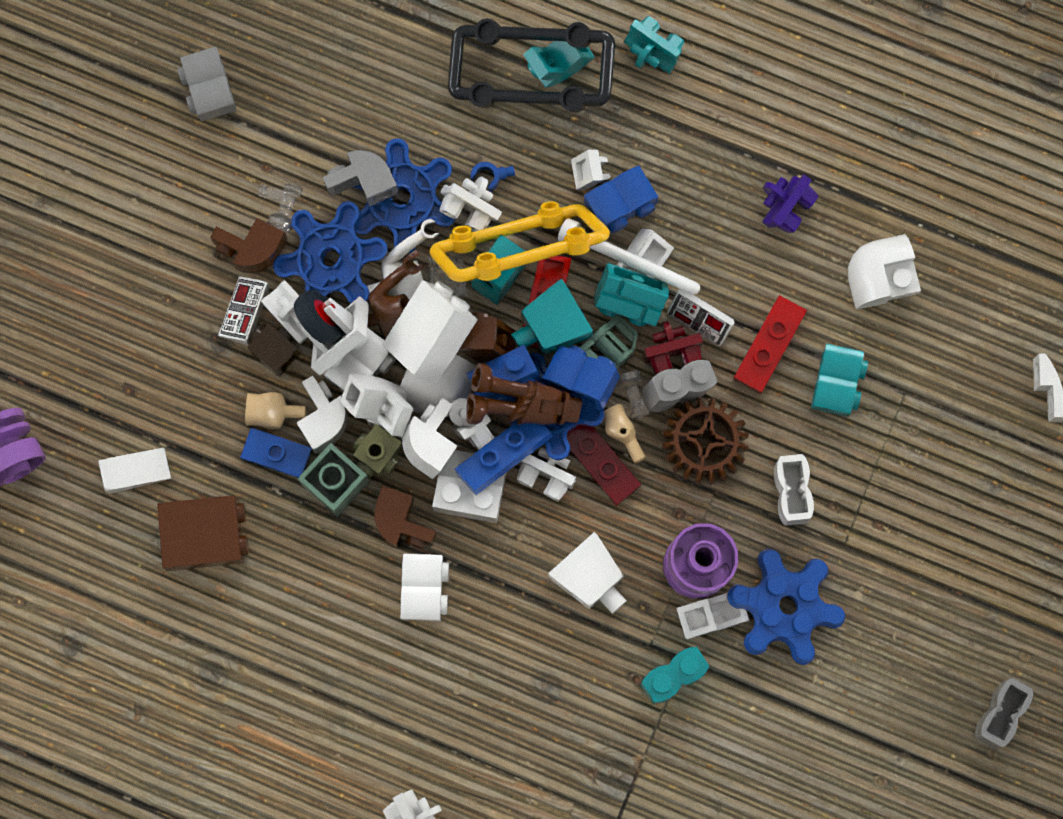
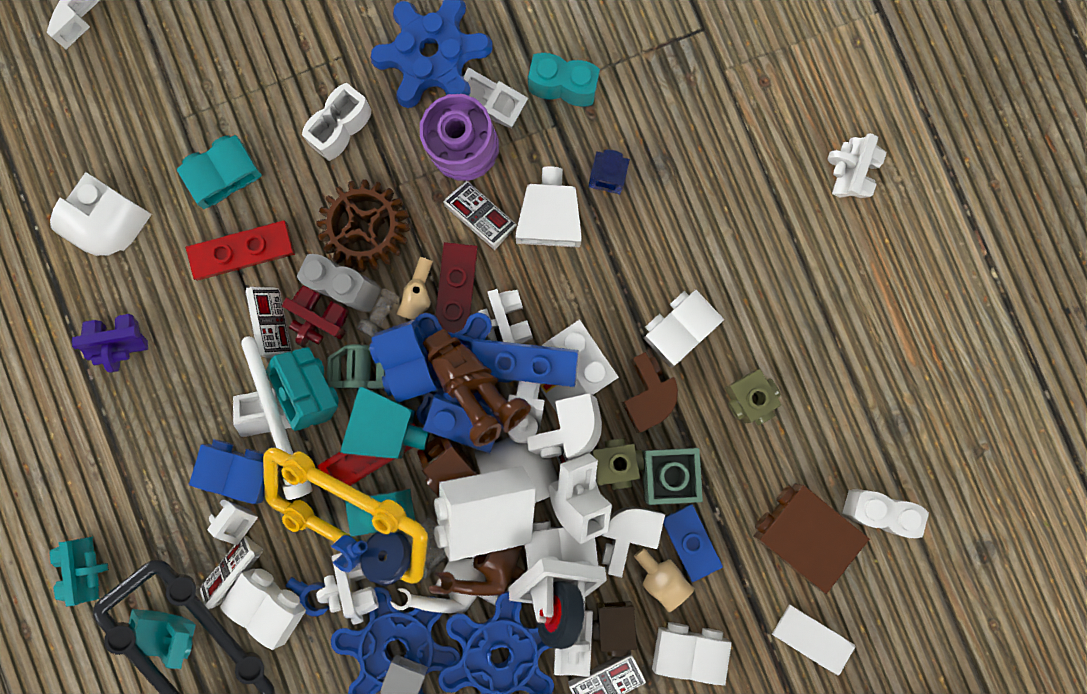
camera: 140 degrees left, 5 degrees up
(159, 602) = (882, 512): none -> white brick
(206, 381) = (691, 654): none -> white brick
(337, 595) = (741, 398): none -> olive brick
(454, 244) = (398, 558): none -> dark blue piece
(490, 225) = (351, 552): none -> blue piece
(512, 138) = (263, 608): none -> white brick
(558, 139) = (224, 576): none -> white slope
(579, 644) = (609, 171): none -> clear blue brick
(636, 528) = (479, 214): none -> slope

